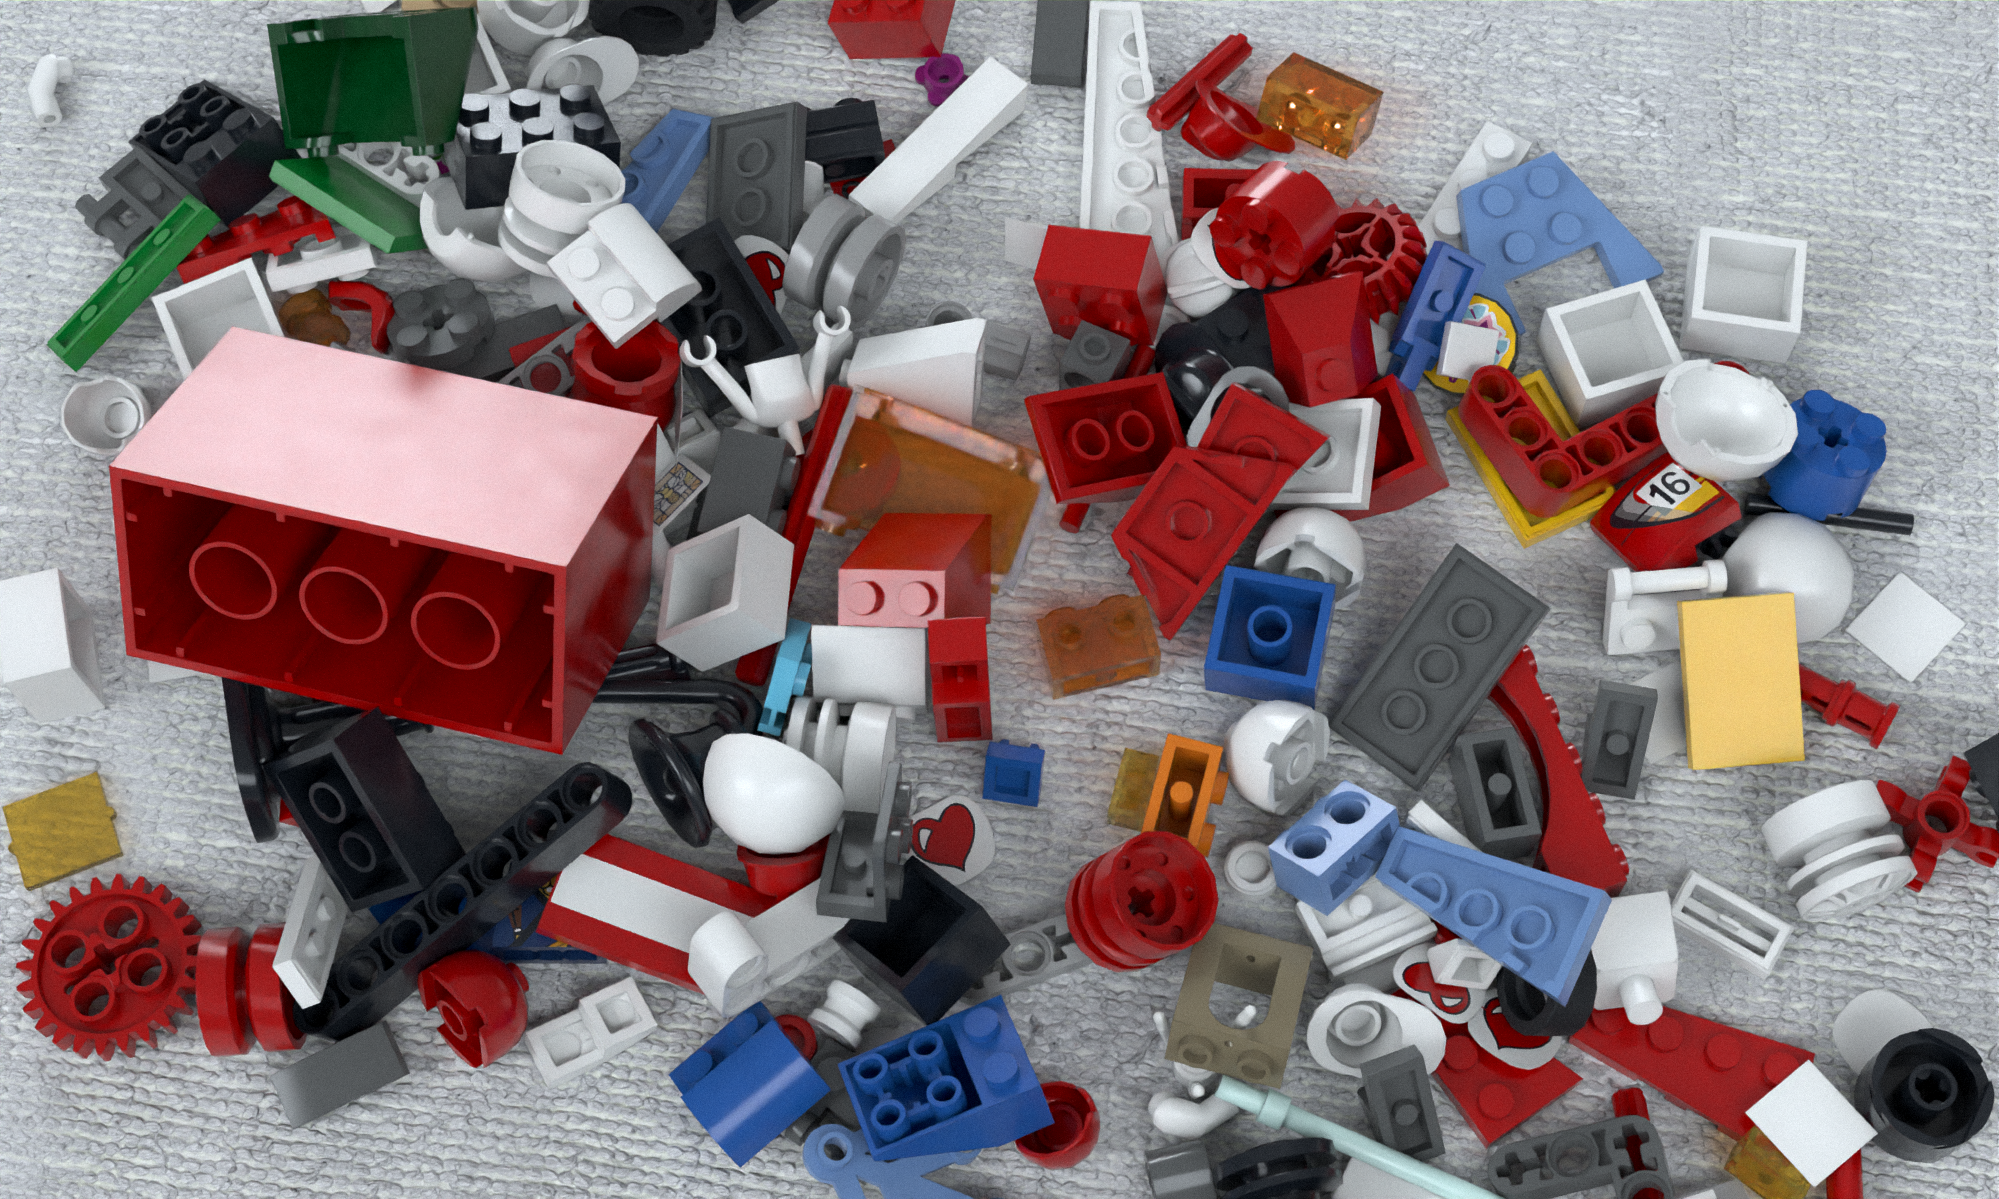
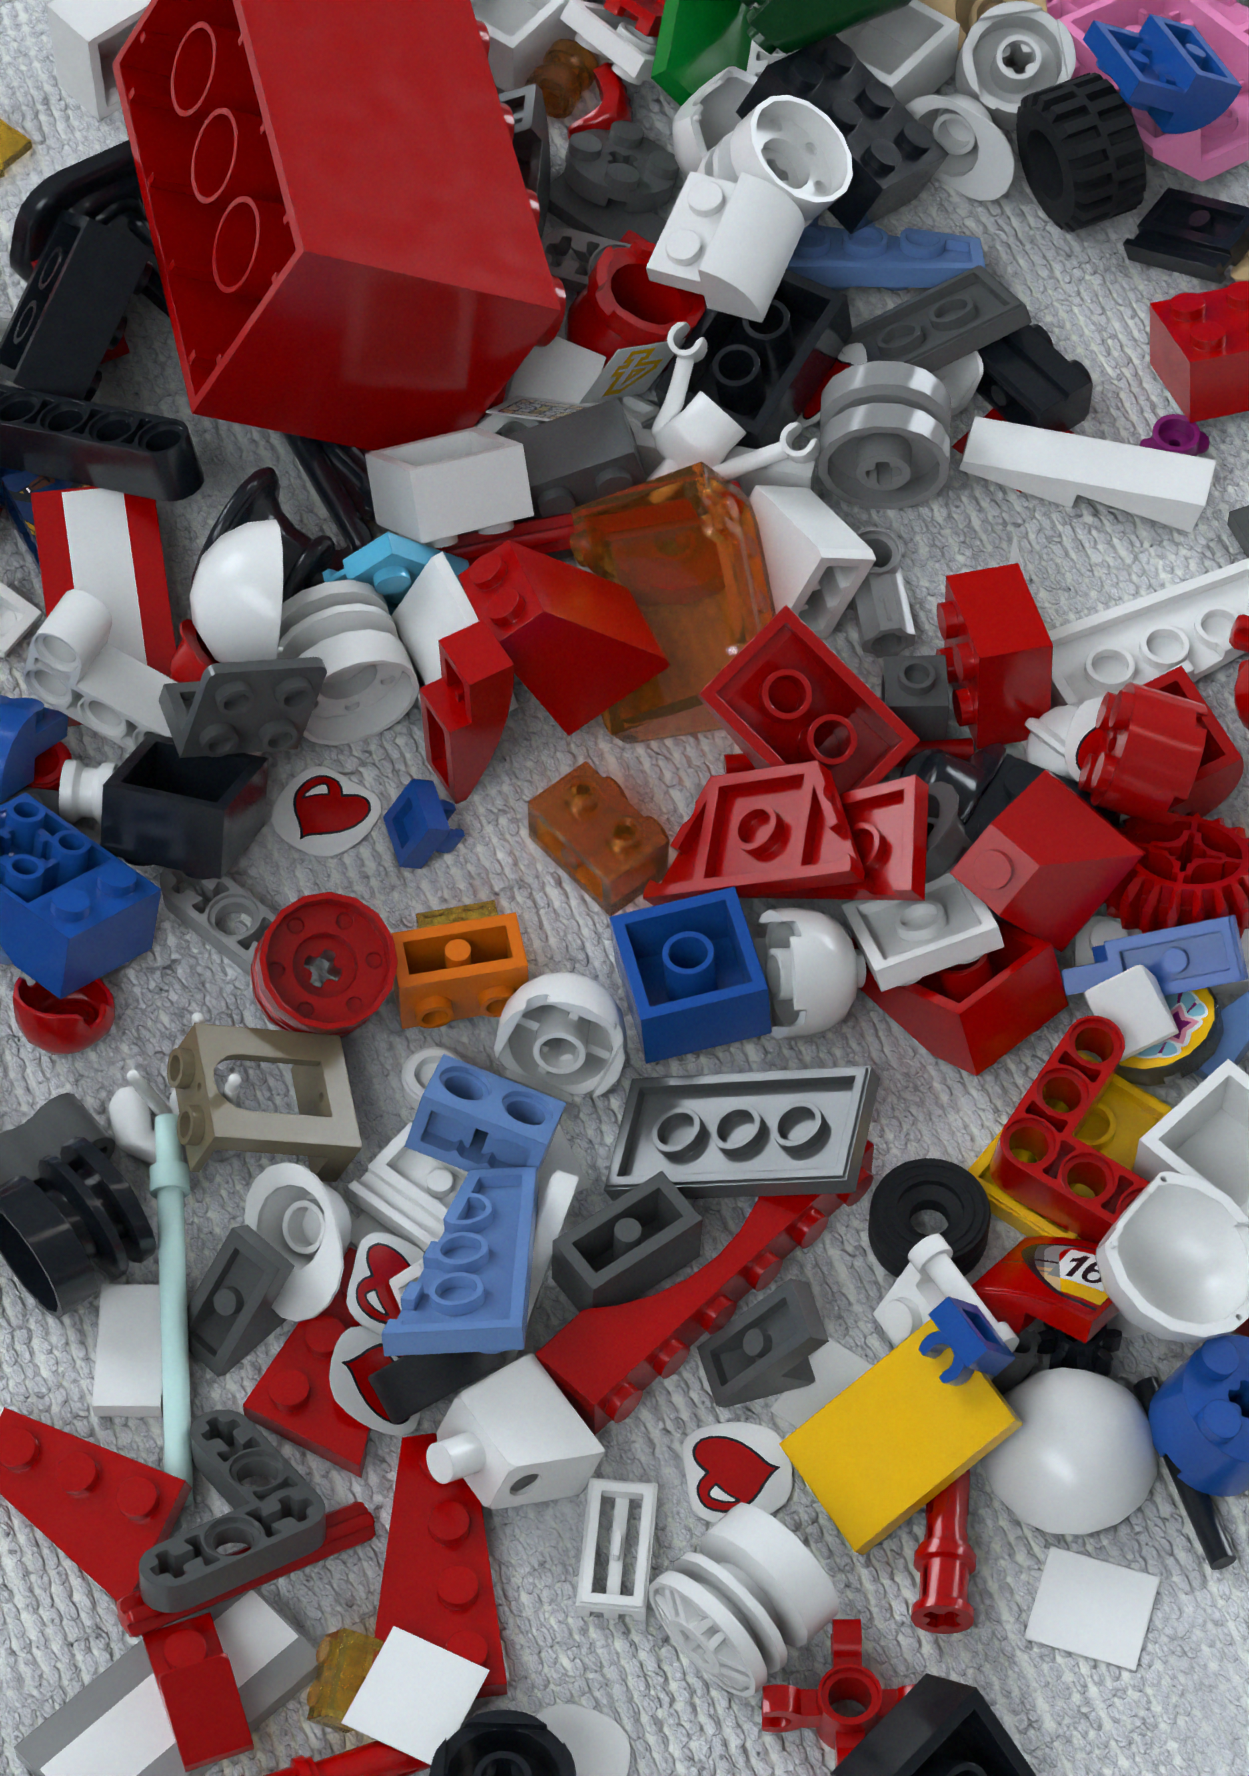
camera: 60 degrees right, 10 degrees down
(1574, 555) = (928, 1186): none -> black tyre
(1693, 812) = (735, 1465): none -> sticker
(1725, 588) = (971, 1339): none -> blue tile

